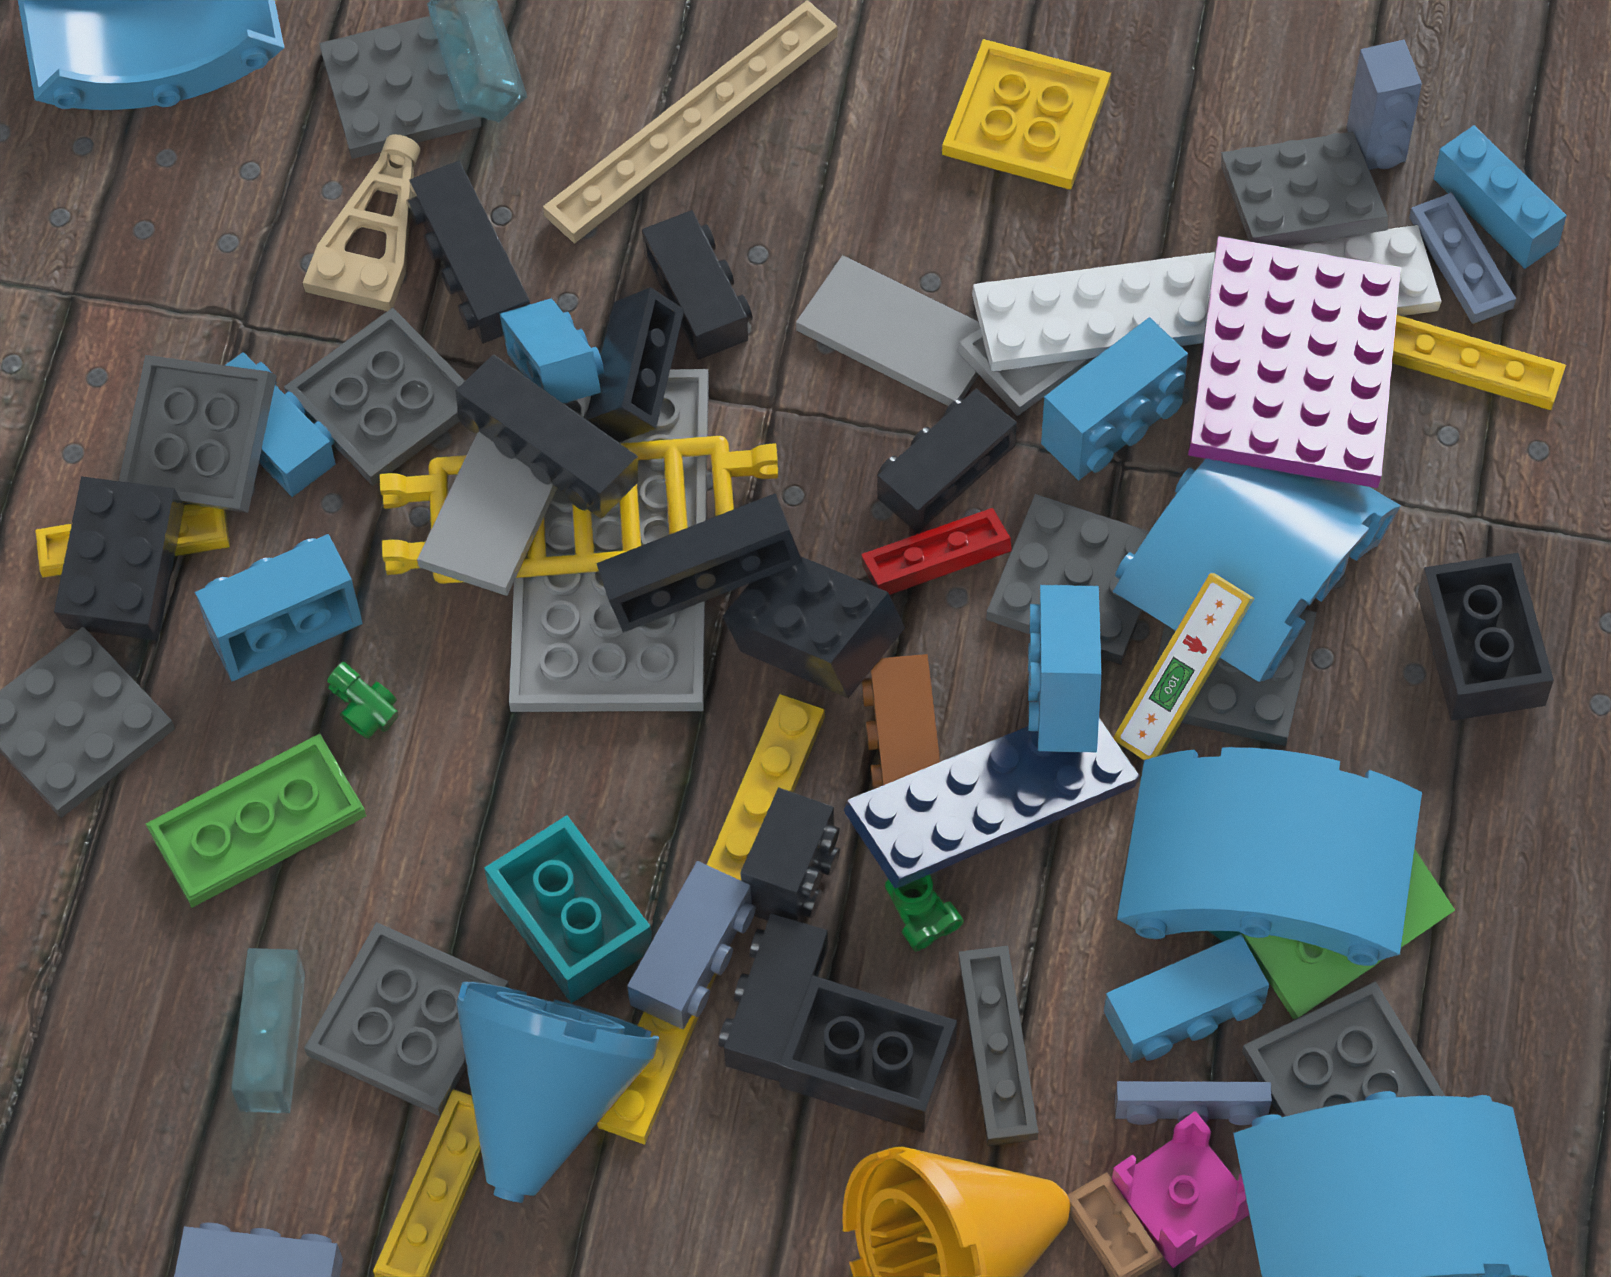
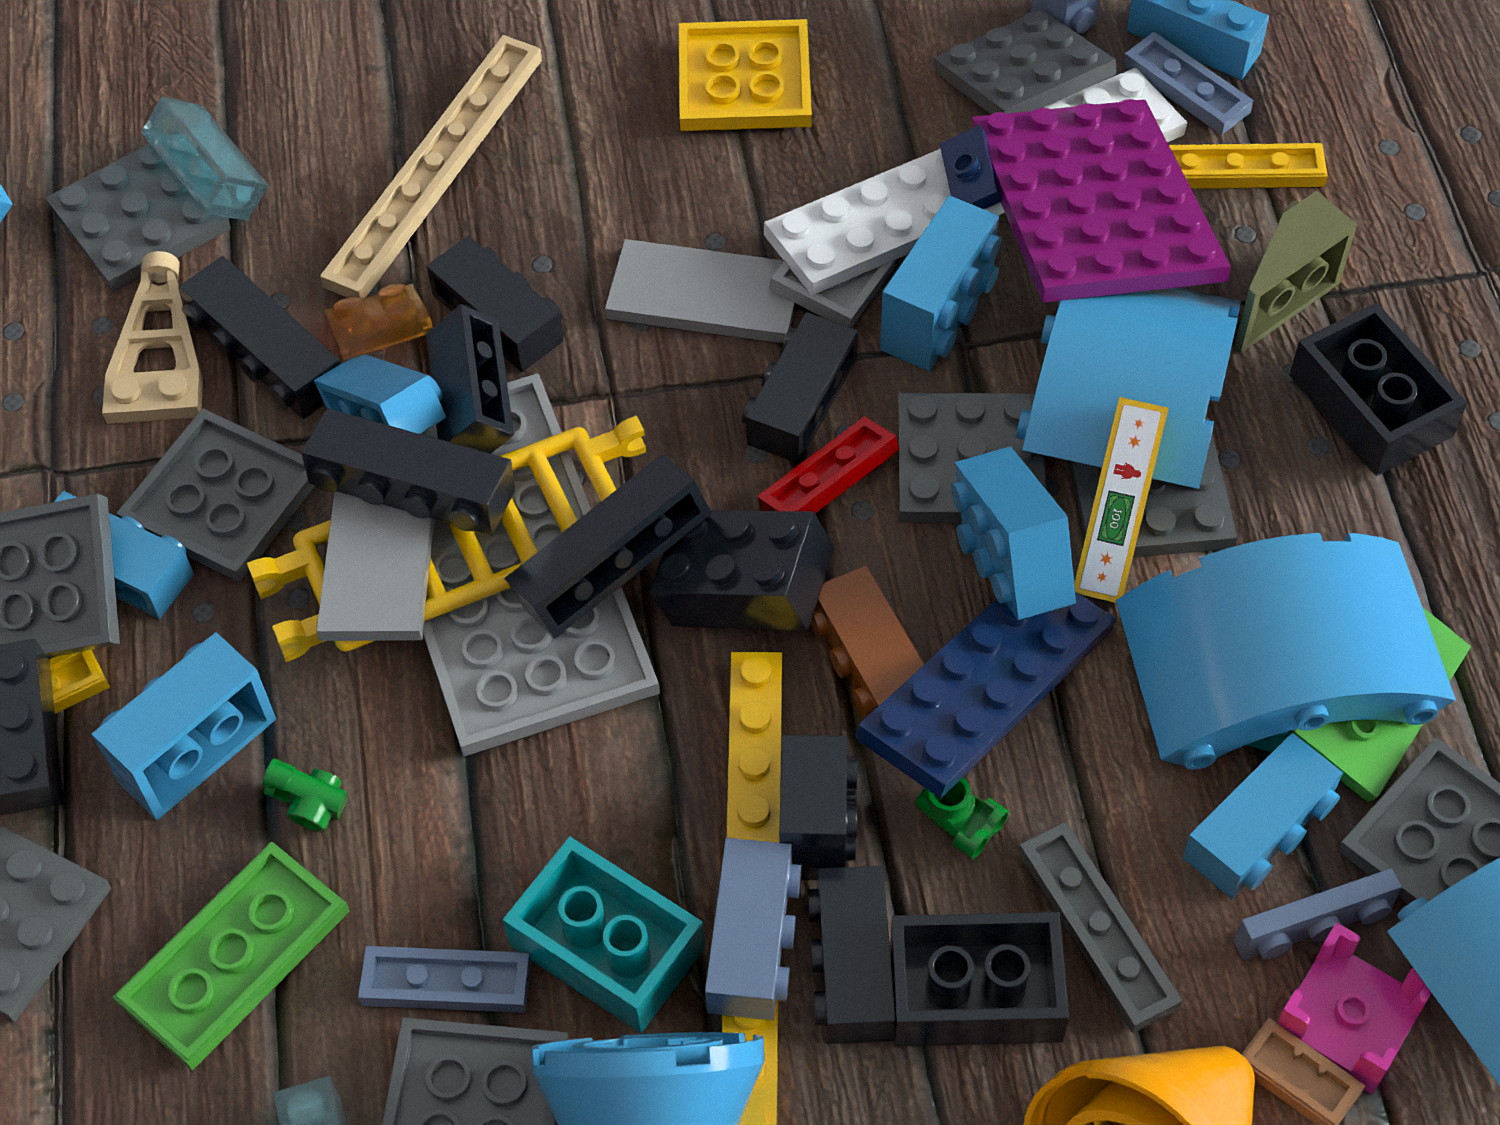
camera: 20 degrees left, 5 degrees down
(424, 902) = (445, 979): none -> sand blue plate
(580, 269) = (378, 320): none -> clear orange plate
(1188, 294) = (970, 168): none -> dark blue plate
(1461, 491) = (1298, 266): none -> olive slope

